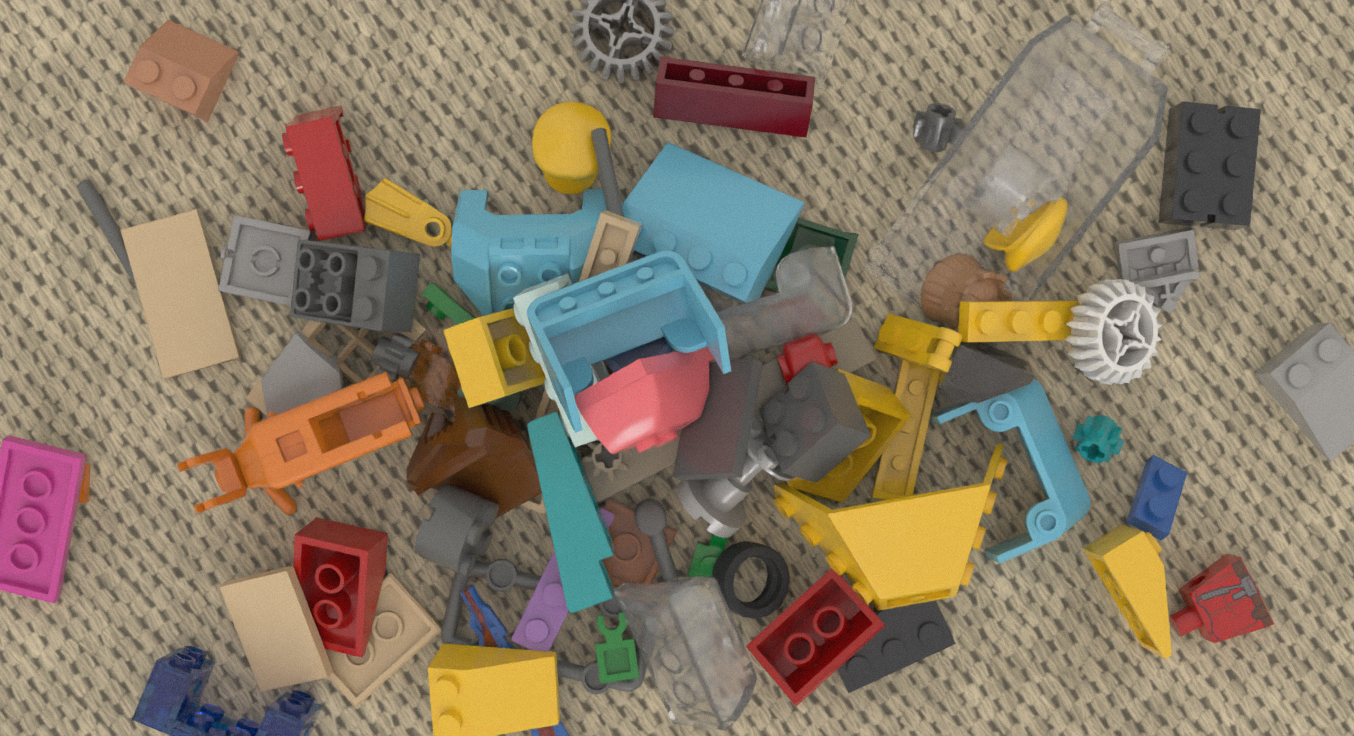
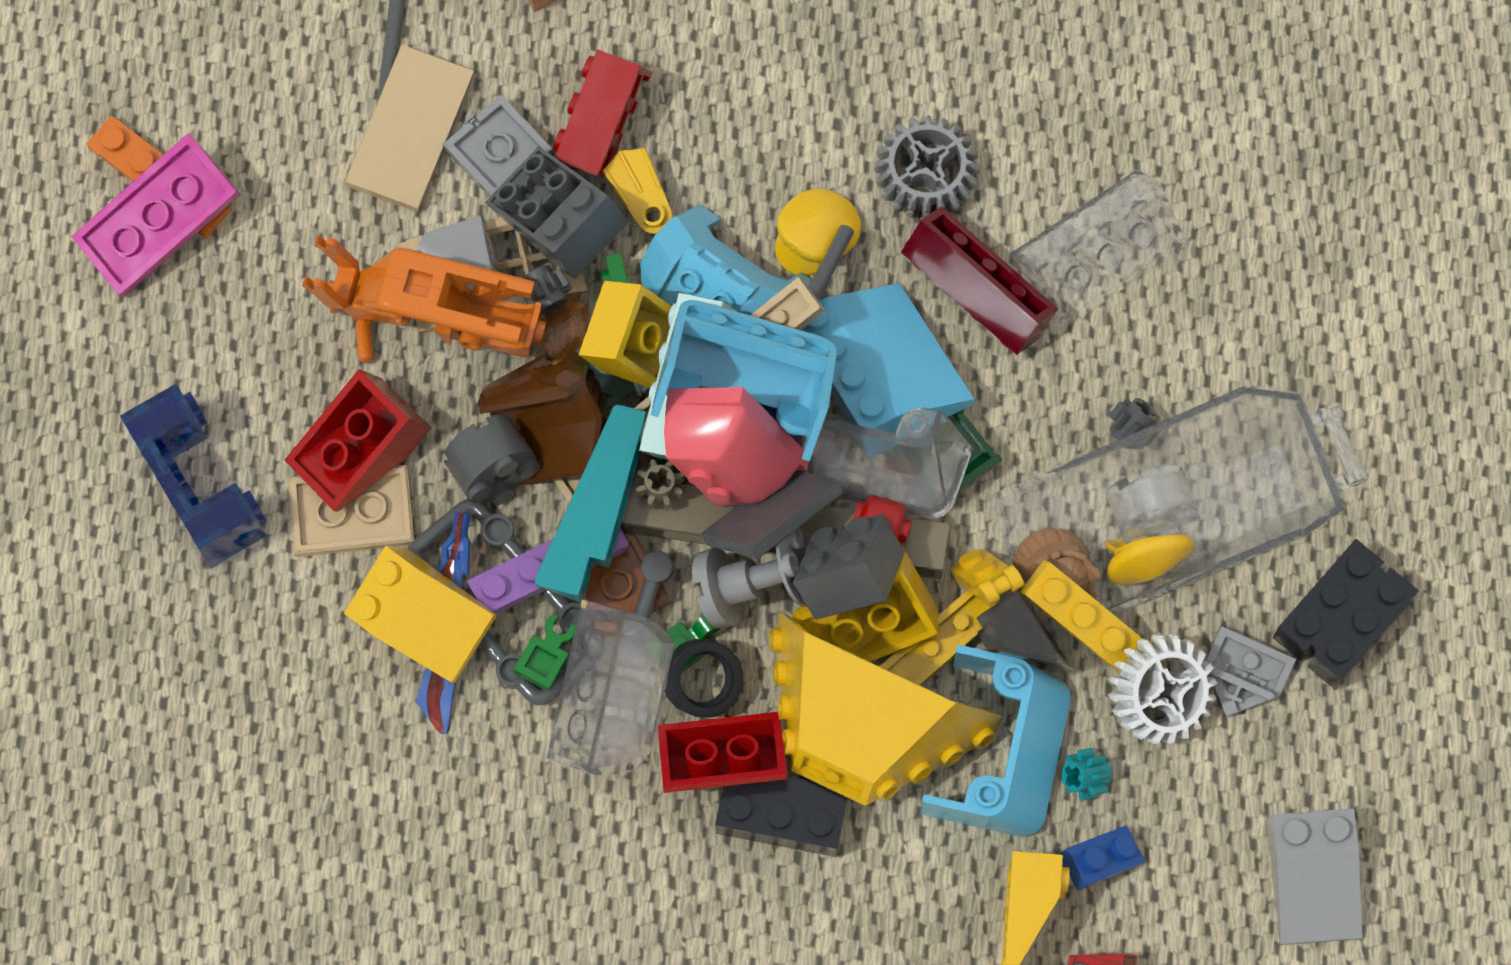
camera: 35 degrees right, 15 degrees down
(276, 629) = (282, 439): tan tile -> none

